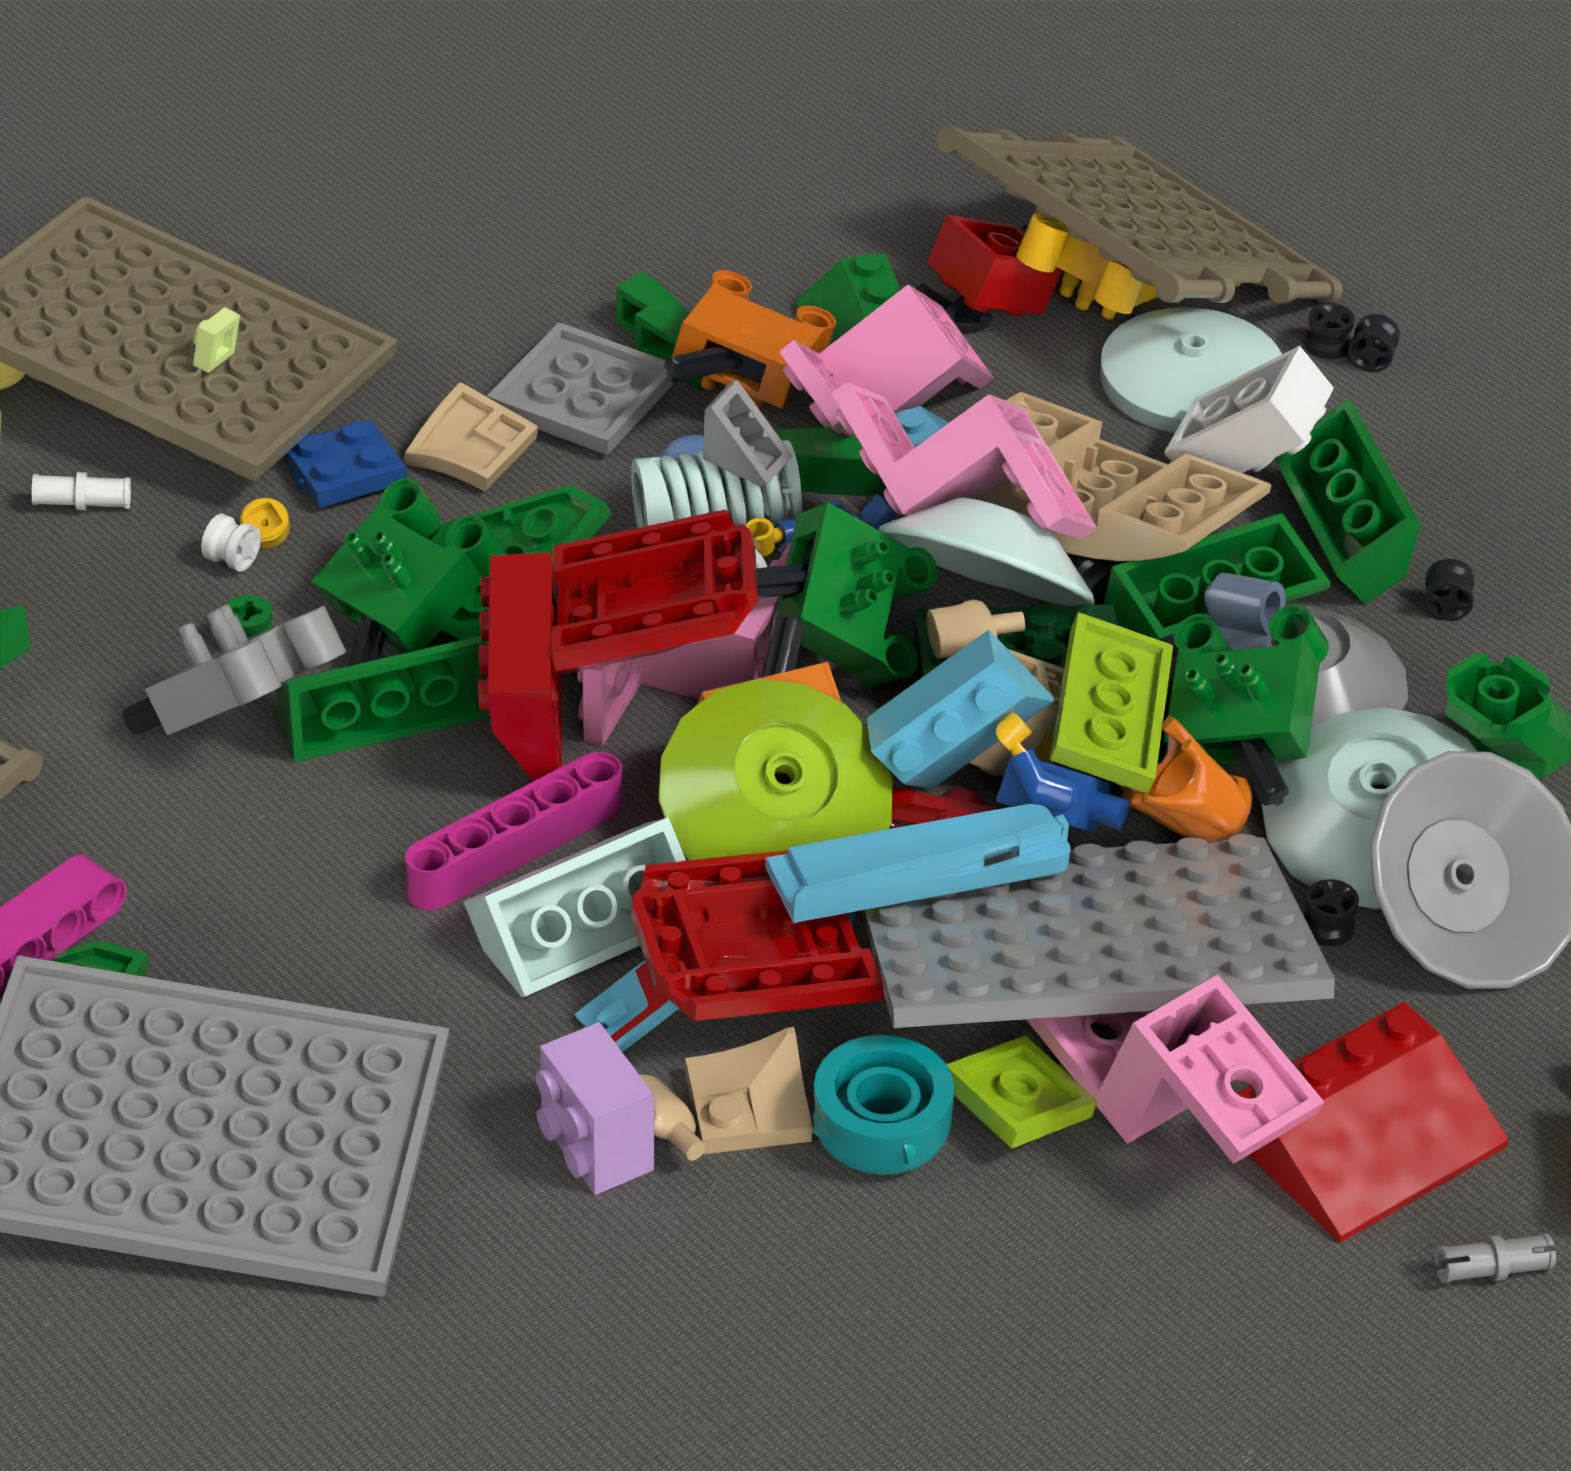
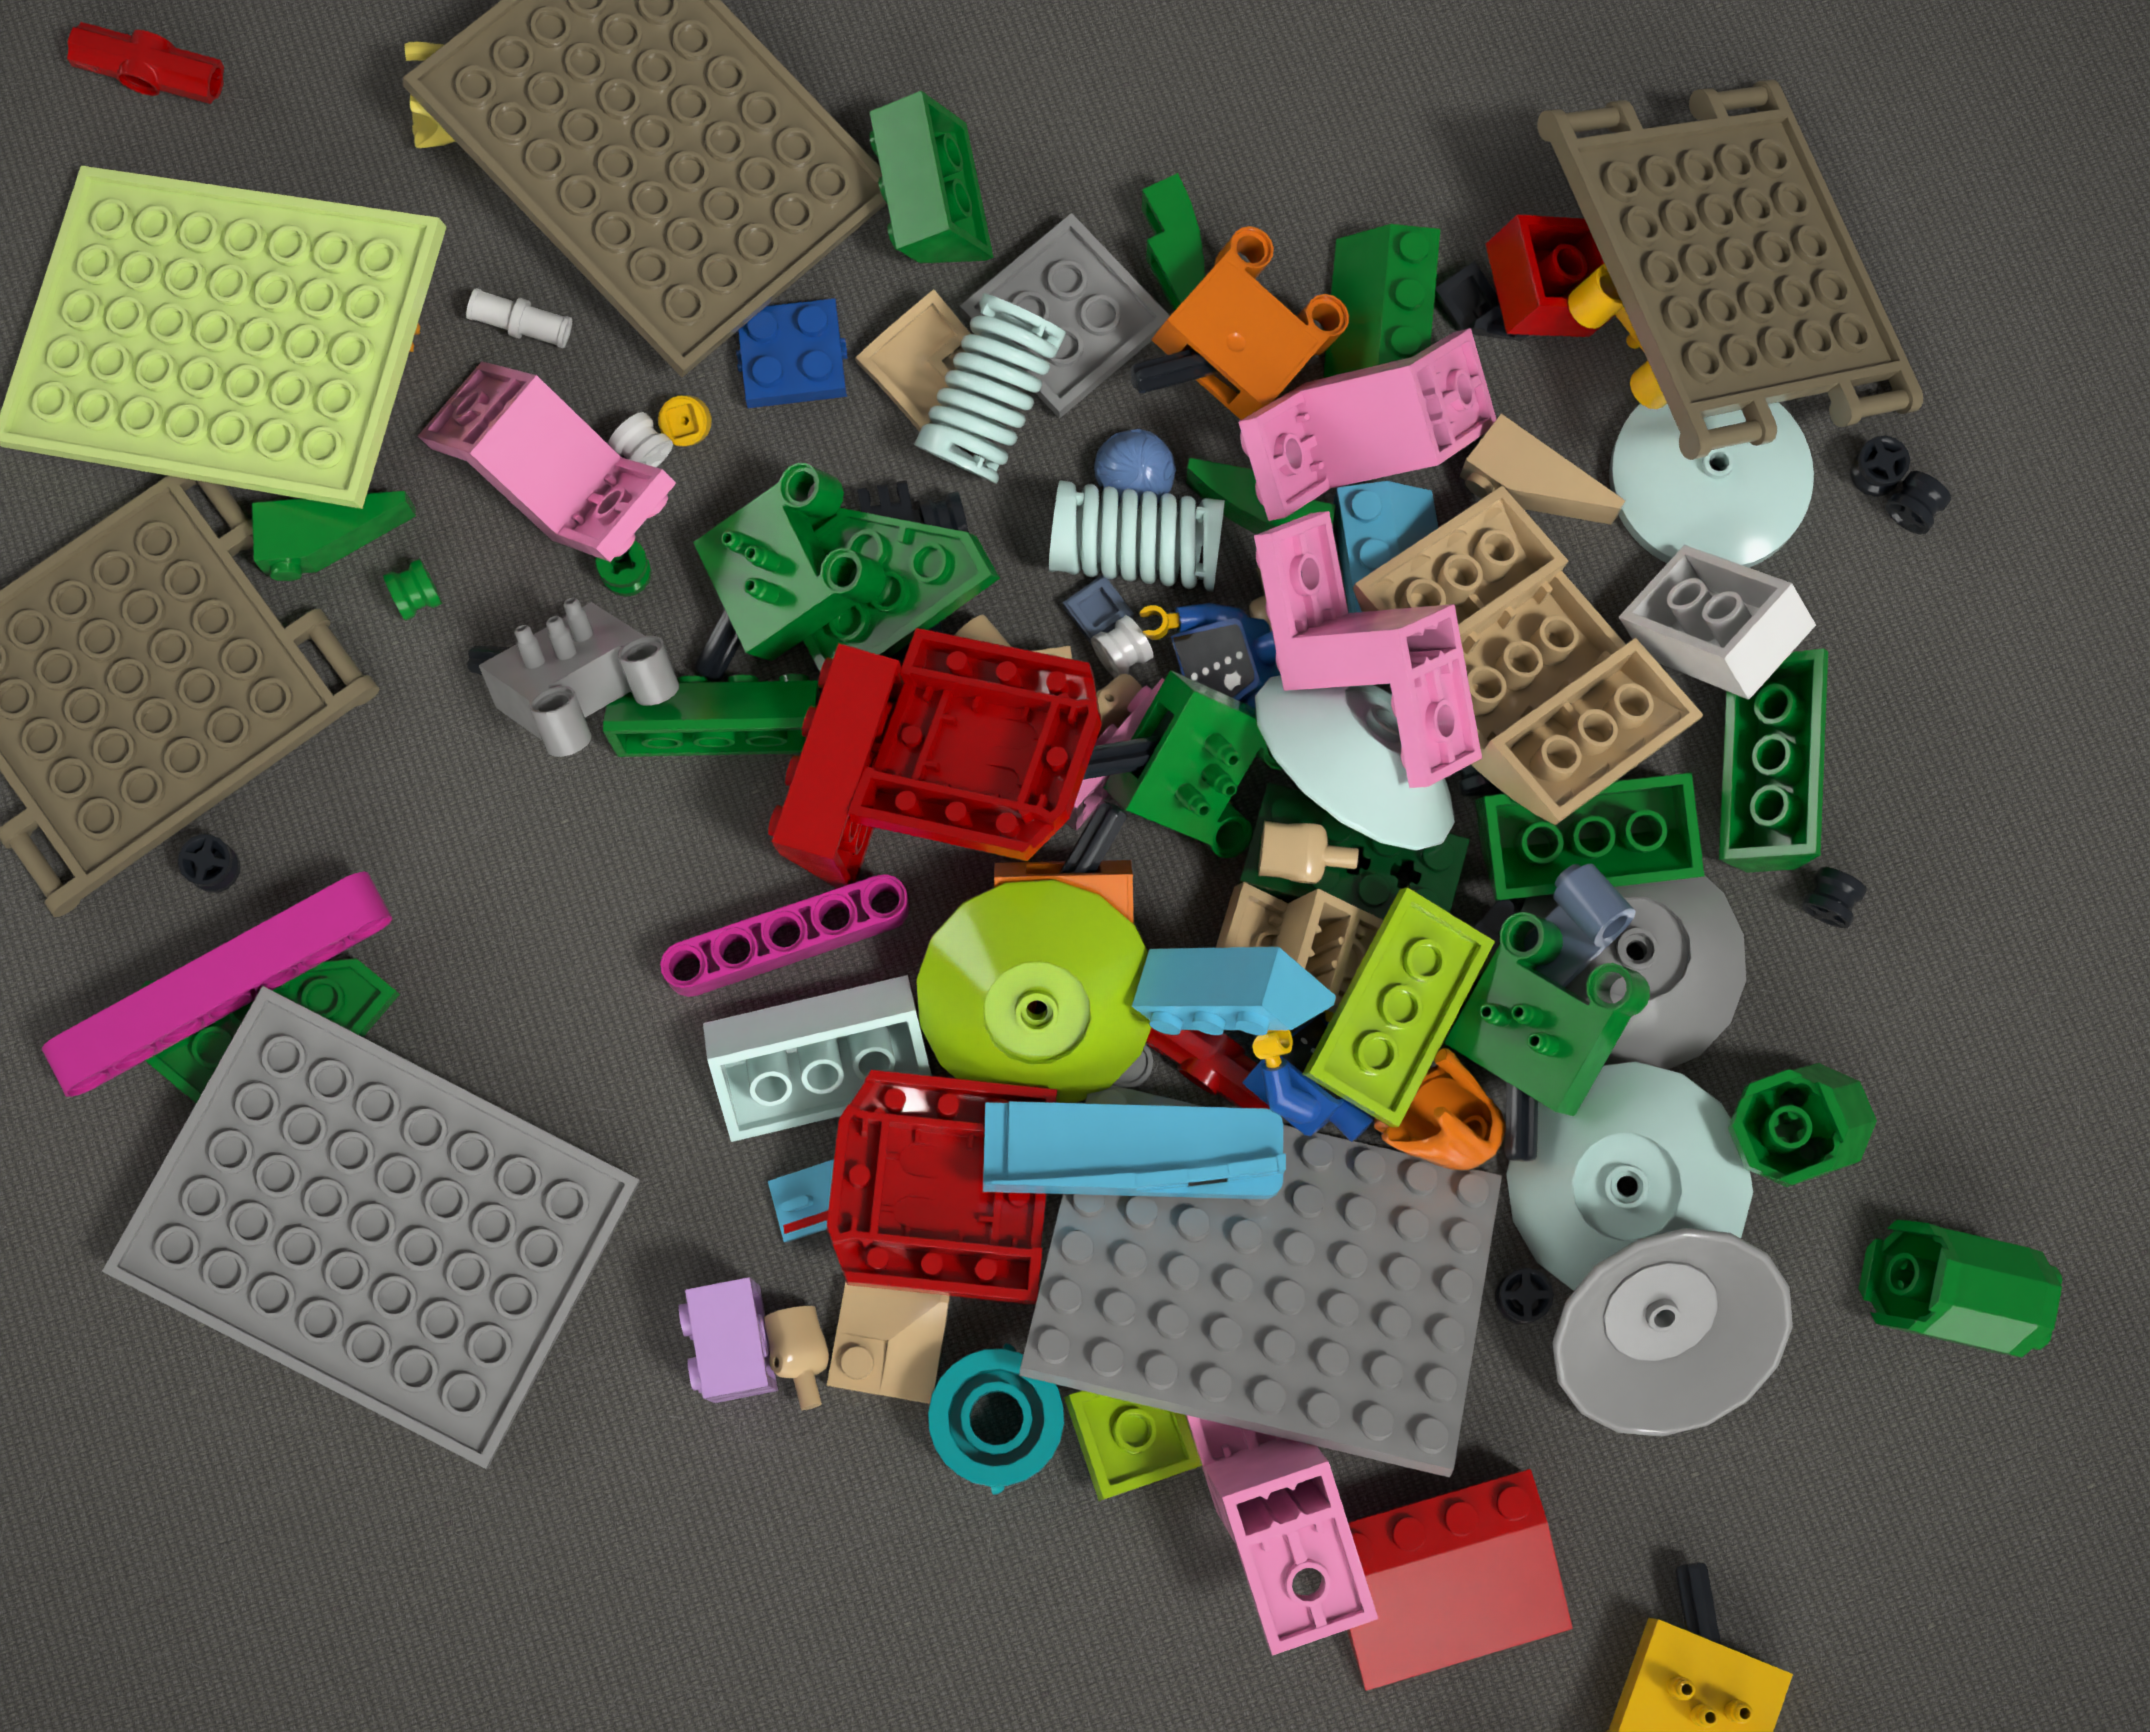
camera: 20 degrees right, 35 degrees up
(51, 681) = (412, 589): none -> green wheel
(154, 550) = (547, 461): none -> bright pink bracket
(215, 339) = (689, 181): yellowish green plate -> none
(423, 321) = (929, 182): none -> green slope
(541, 417) = (980, 385): none -> light aqua piece
(741, 437) = (1167, 523): light grey slope -> none
(1074, 389) = (1536, 476): none -> tan slope

